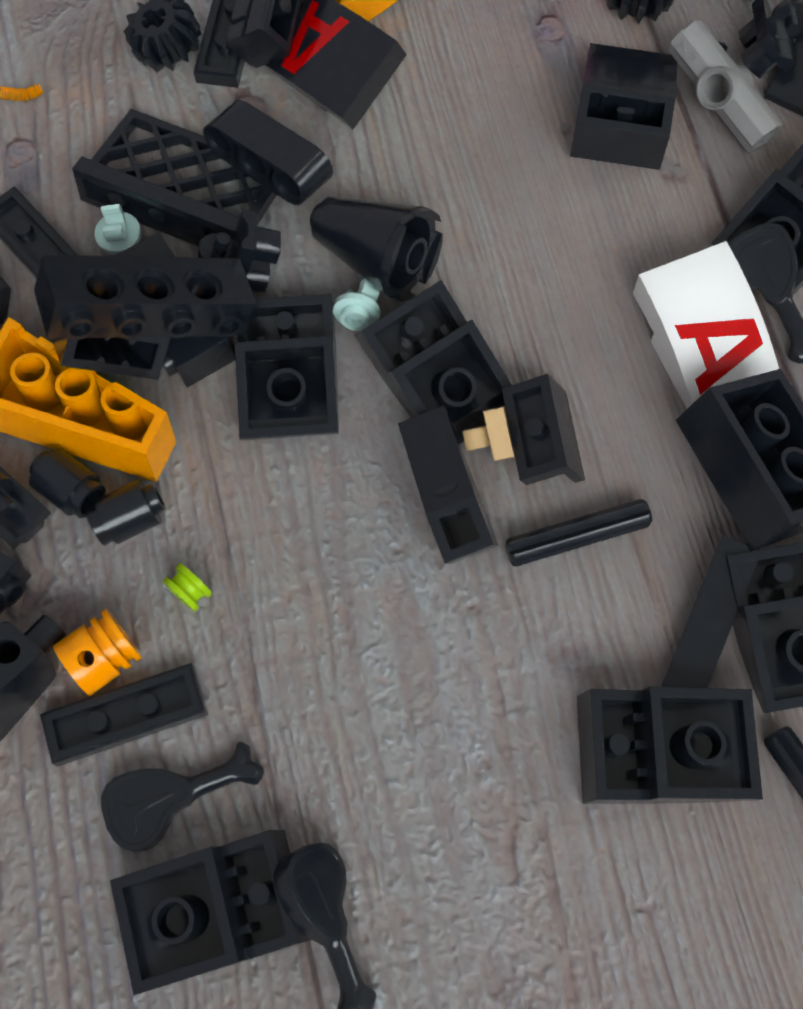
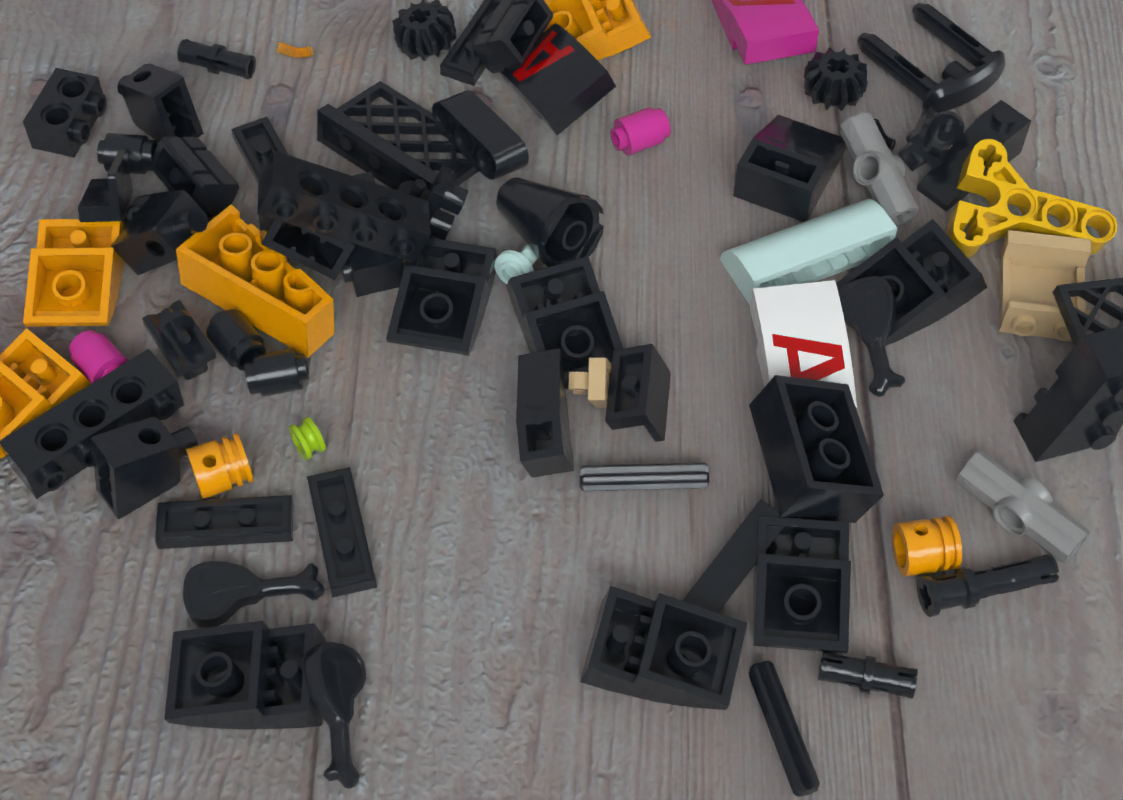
camera: 10 degrees right, 15 degrees down
(117, 230) = (340, 160): light aqua plate -> none
(261, 691) = (341, 532): none -> black tile
(445, 101) = (640, 130): none -> dark pink brick
(676, 203) = (811, 248): none -> light aqua brick

